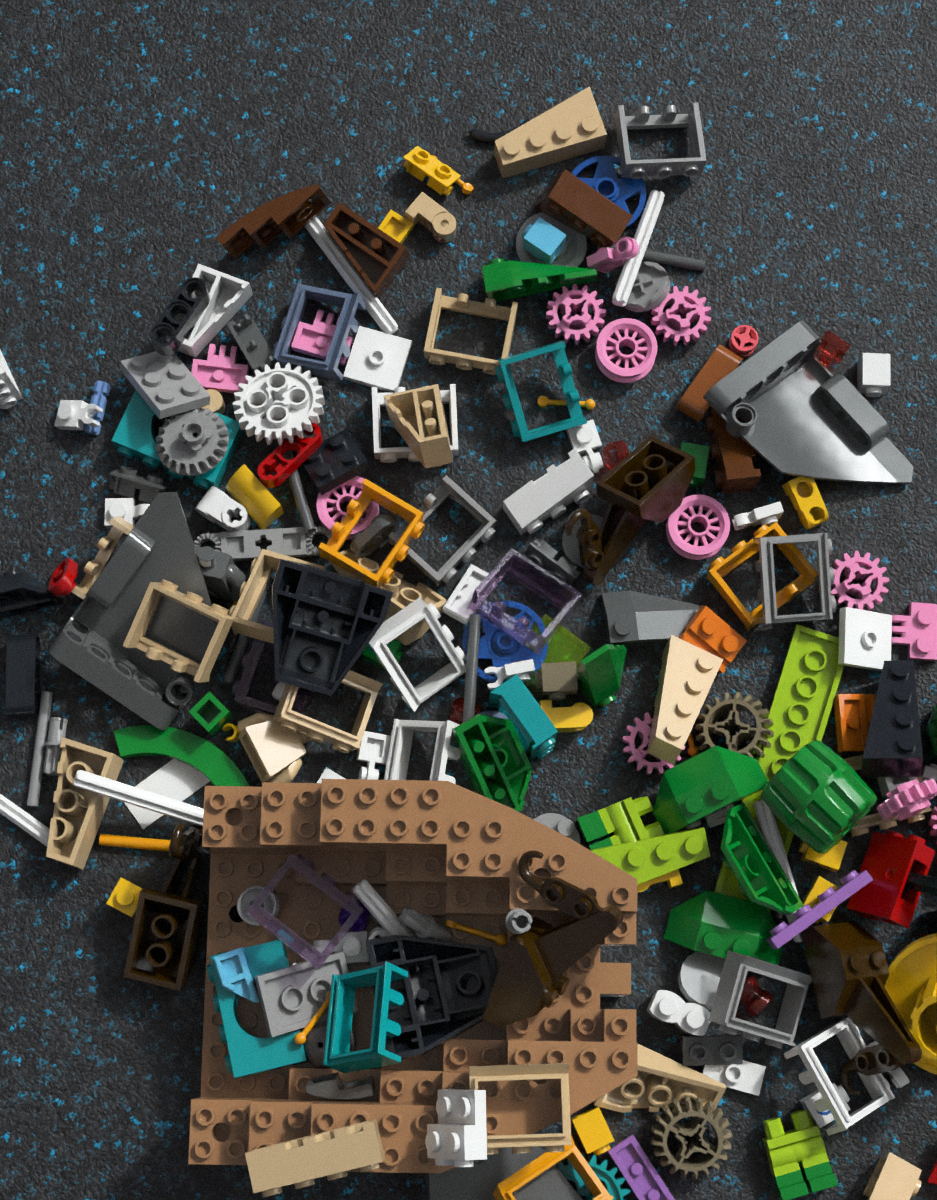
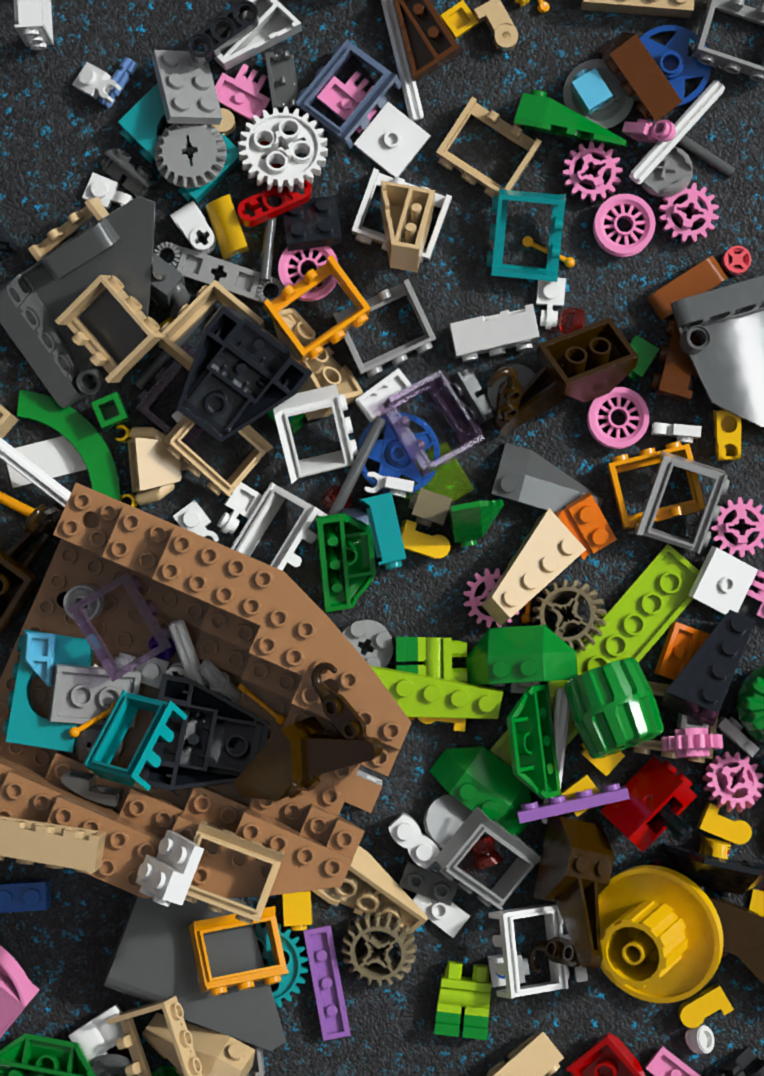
camera: 25 degrees right, 10 degrees up
(63, 578) = (26, 233): red plate -> none
(191, 428) = (191, 143): light grey plate -> none
(374, 536) = (322, 307): dark grey plate -> none
(518, 921) = (293, 717): light grey axle -> none

